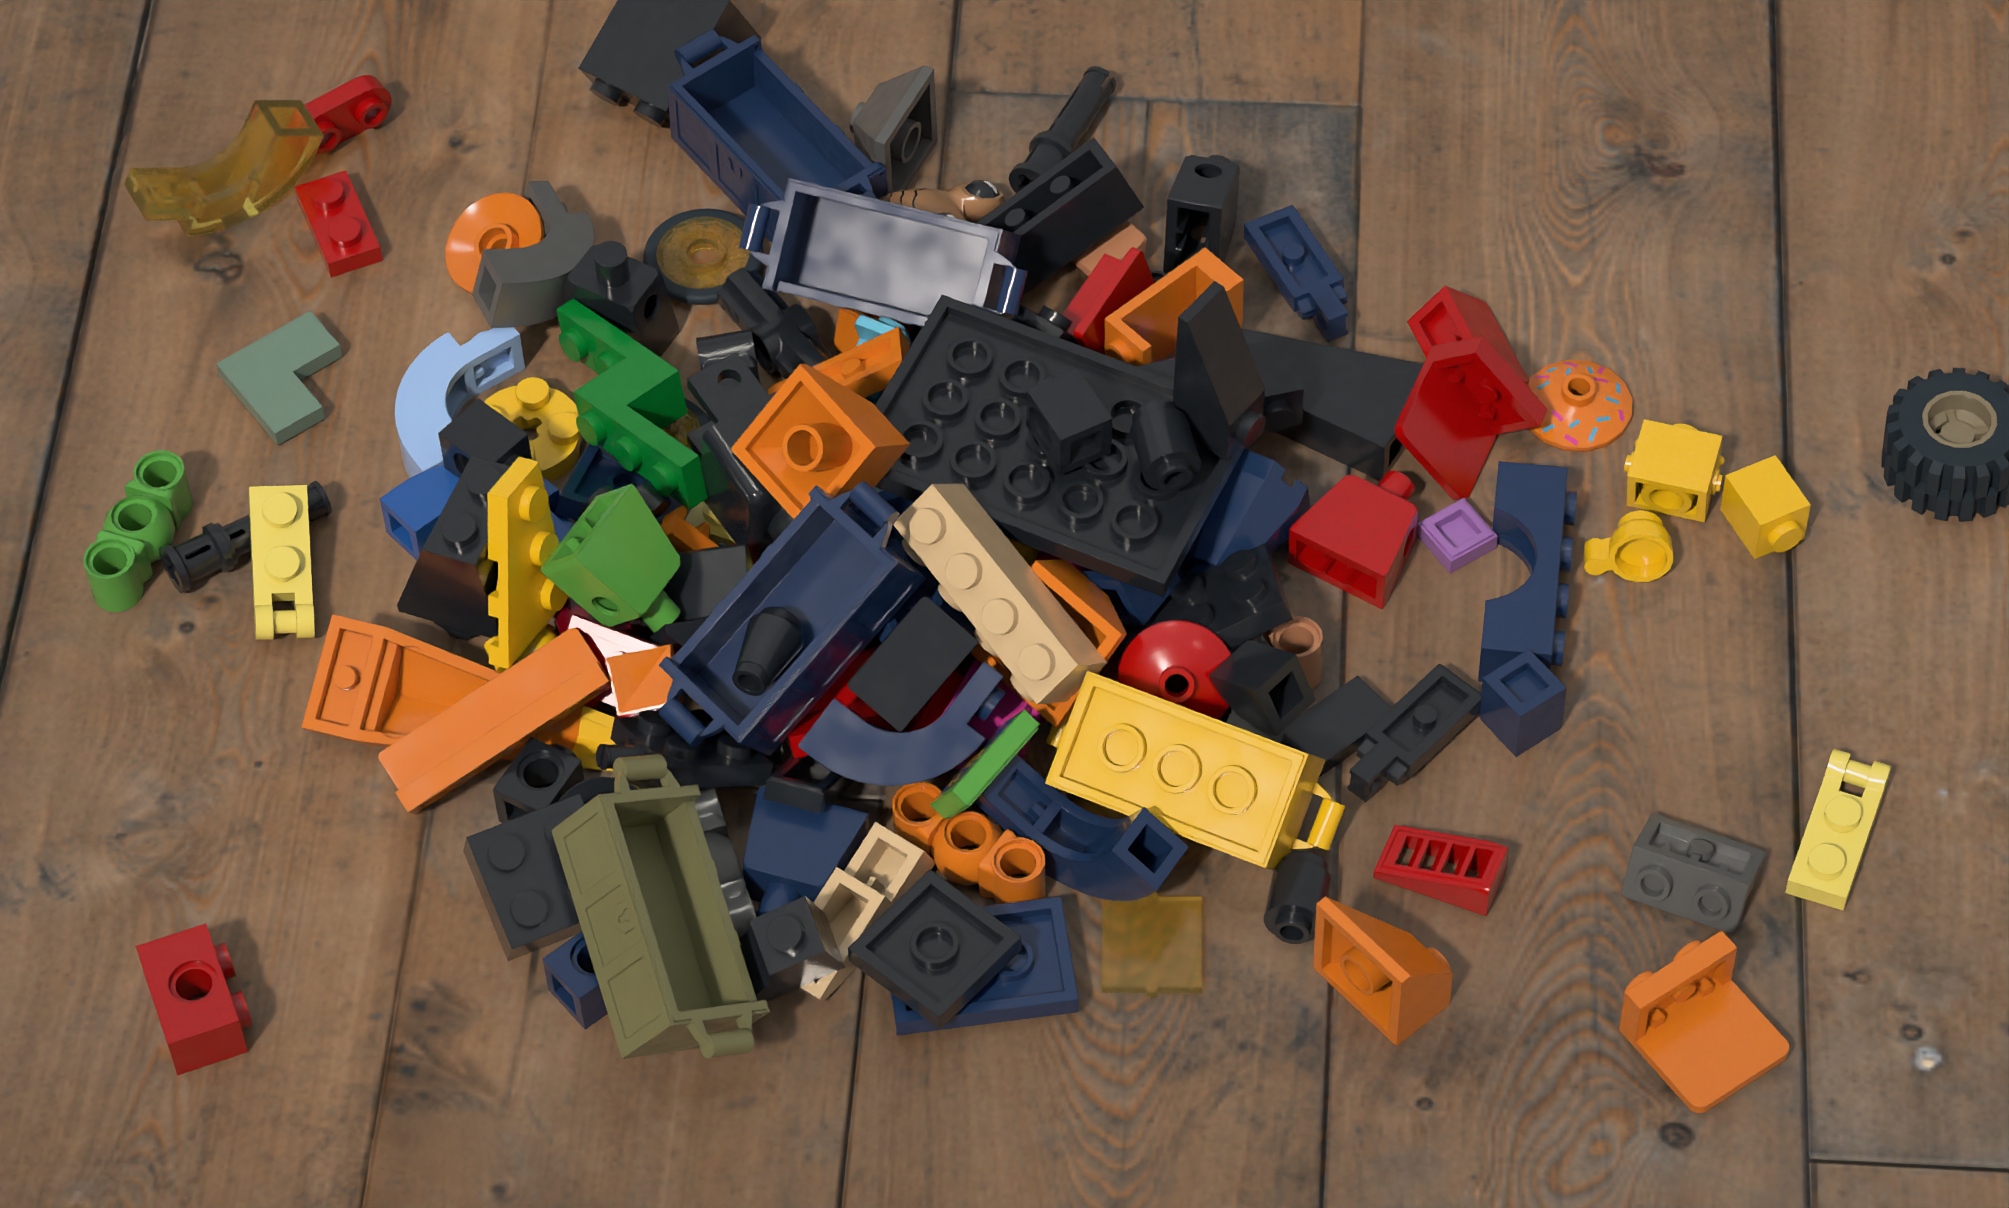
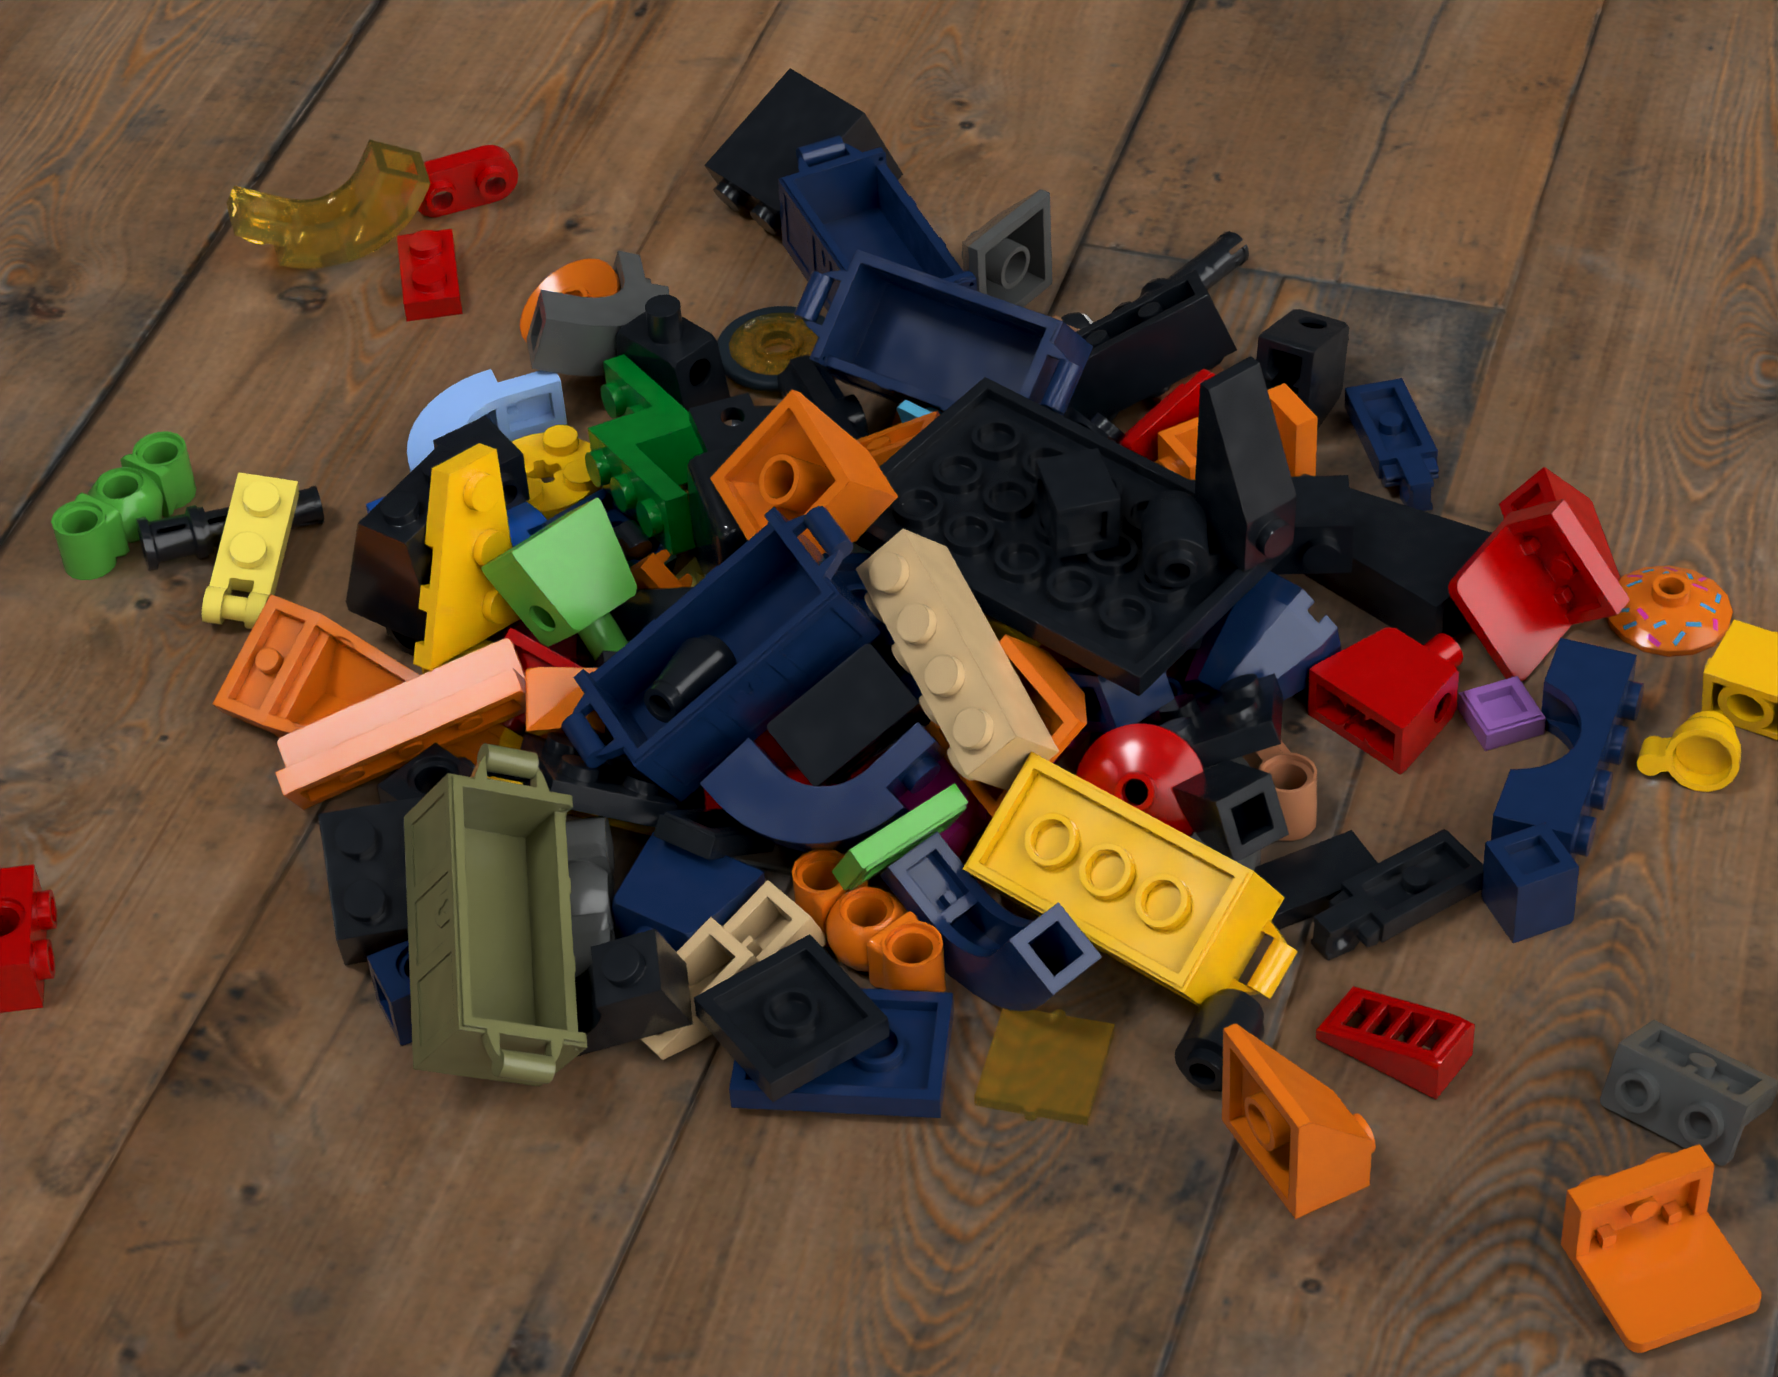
camera: 15 degrees right, 10 degrees down
(270, 374) = (311, 393): sand green tile -> none

